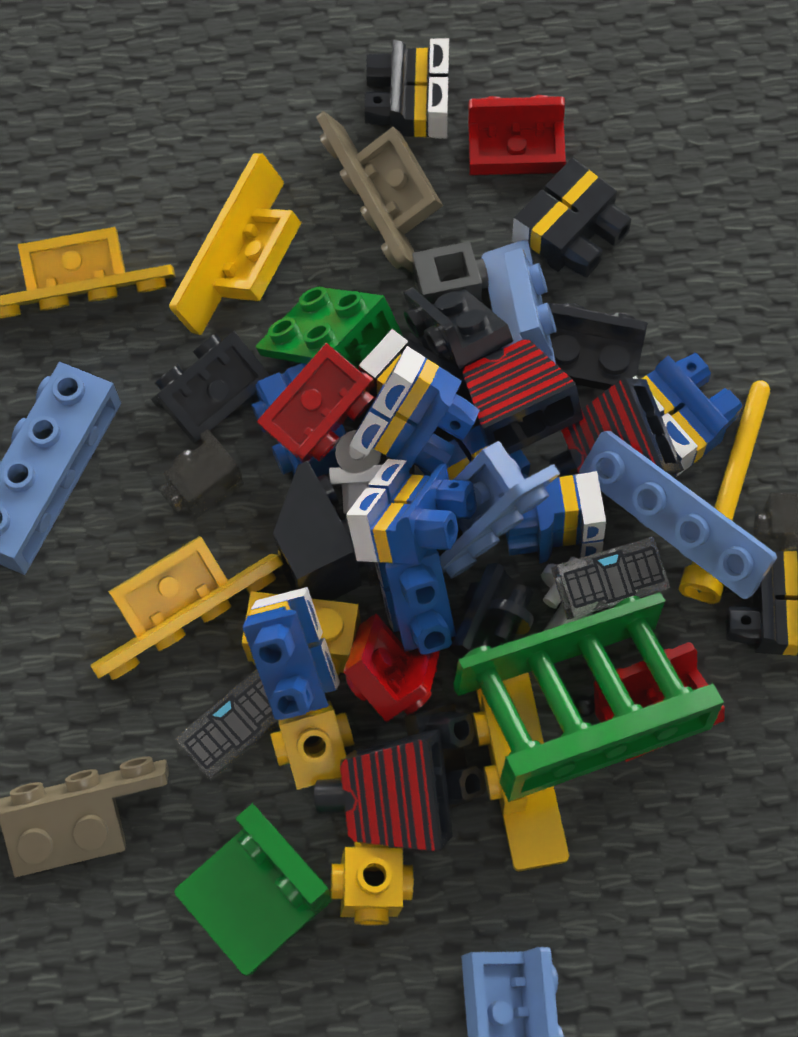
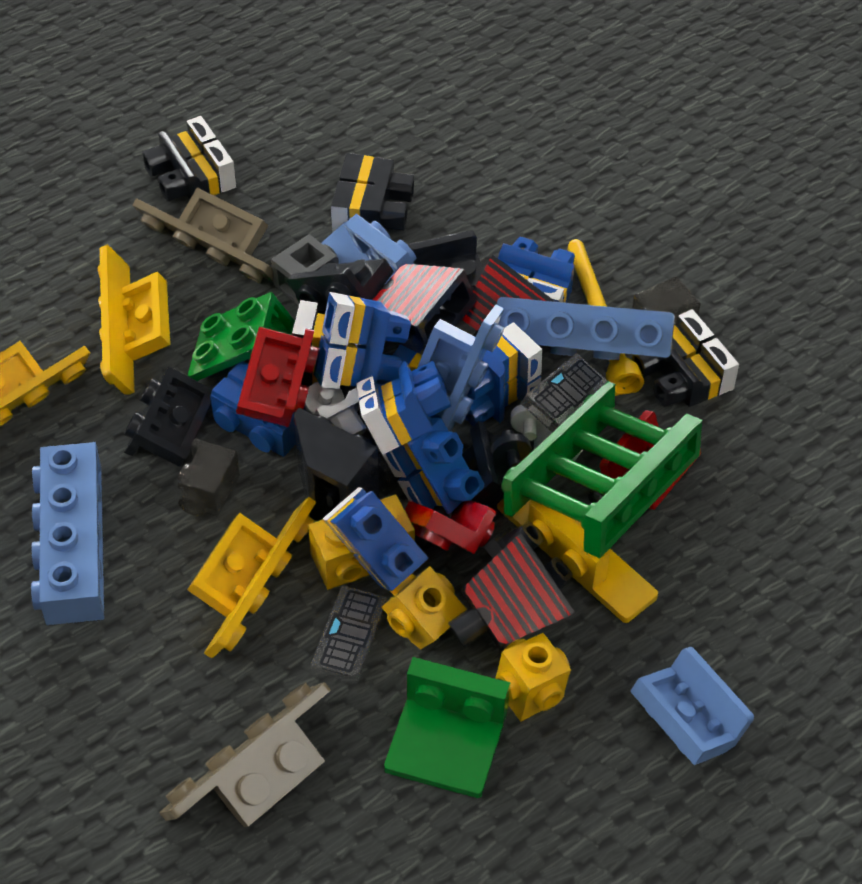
camera: 35 degrees left, 15 degrees down
(516, 135) = (290, 160): red bracket -> none

